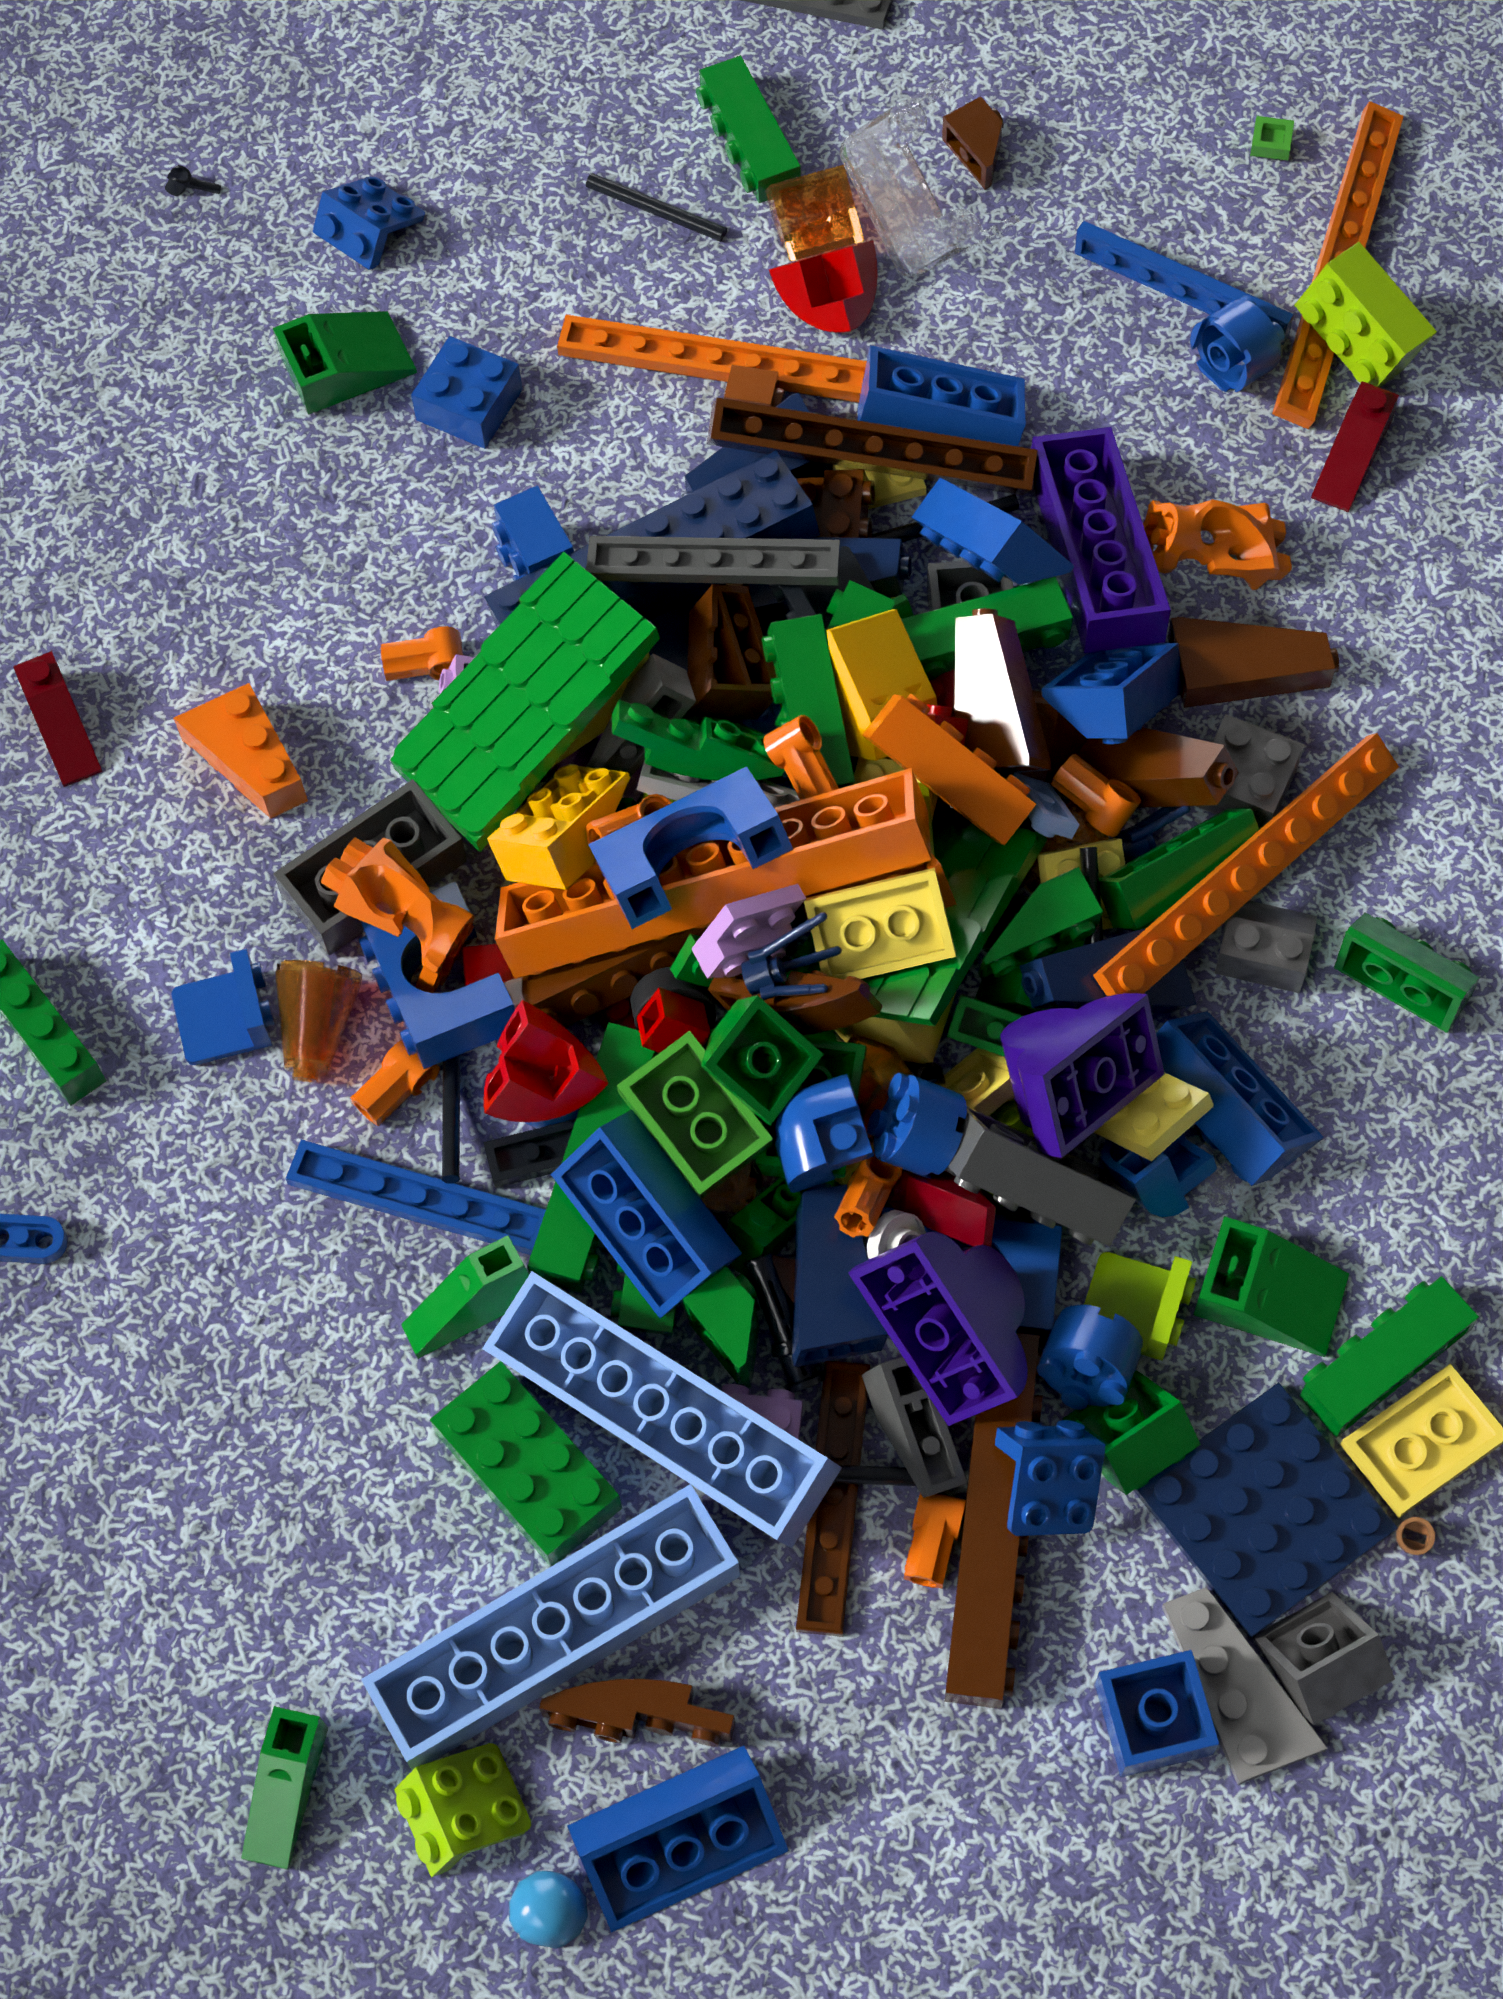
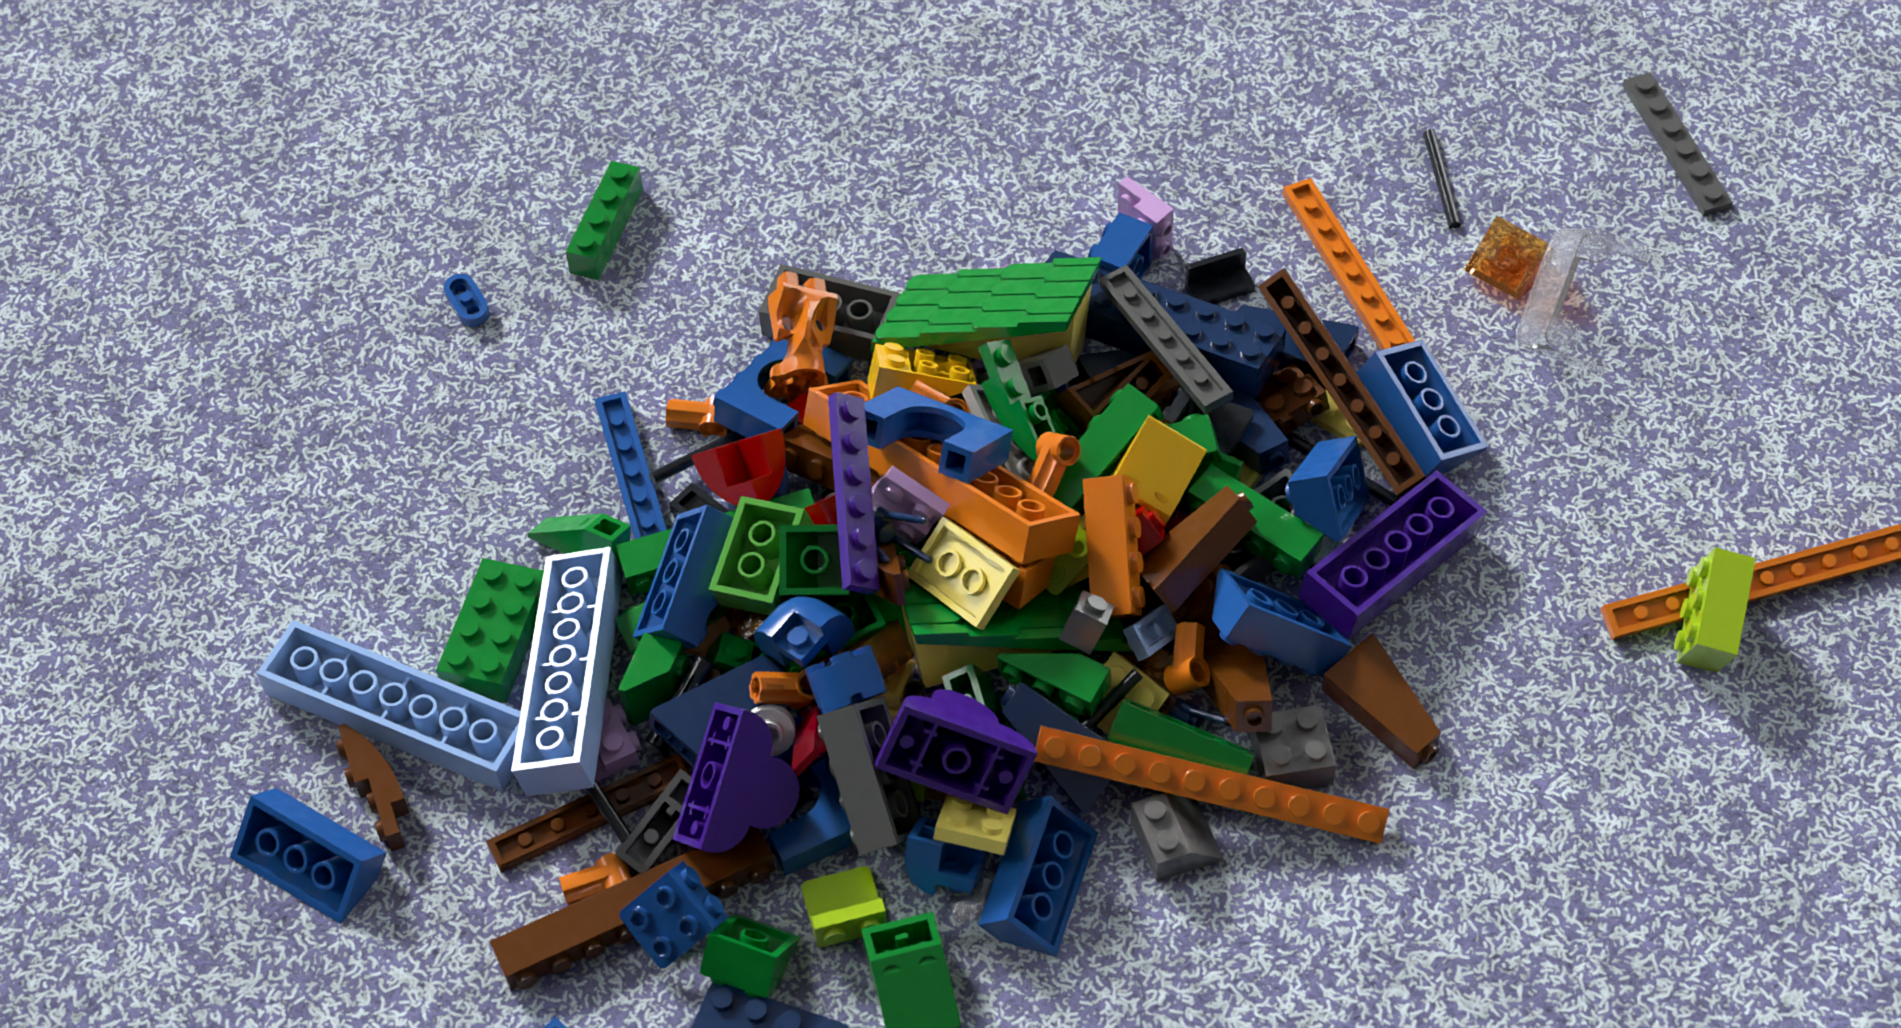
camera: 55 degrees right, 10 degrees down
(57, 718) = (812, 106): dark red slope -> none
(224, 1012) = (682, 305): blue bracket -> none
(245, 749) = (863, 207): orange wedge -> none
(283, 1786) = (213, 627): green slope -> none
(313, 1014) = (708, 346): clear orange cone -> none
(341, 355) = (1176, 86): green slope -> none
(361, 216) = (1292, 34): blue bracket -> none
(421, 655) = (997, 250): orange piece -> none
(461, 1806) = (259, 729): lime bracket -> none
(467, 392) = (1207, 162): blue brick -> none
(493, 481) = (1144, 206): none -> lavender plate
(548, 1909) = (220, 813): dark azure hair -> none
(625, 479) = (1219, 277): none -> black panel
(726, 964) = (853, 494): none -> dark purple plate
(747, 125) = (1546, 184): green brick -> none
(754, 386) = (1341, 304): dark orange brick -> none
(830, 288) = (1462, 303): red brick -> none
(975, 138) = (1660, 314): reddish brown slope -> none
(1015, 851) = (1086, 622): none -> dark grey brick
(1090, 1357) = (776, 892): blue brick -> none
(1165, 274) = (1656, 497): blue tile -> none
(1235, 530) = (1475, 632): orange hips -> none
(1236, 335) = (1629, 552): blue brick -> none
(1272, 138) = (1832, 482): bright green plate -> none
(1355, 446) = (1619, 672): dark red slope -> none
(1405, 971) = (1219, 929): green slope -> none

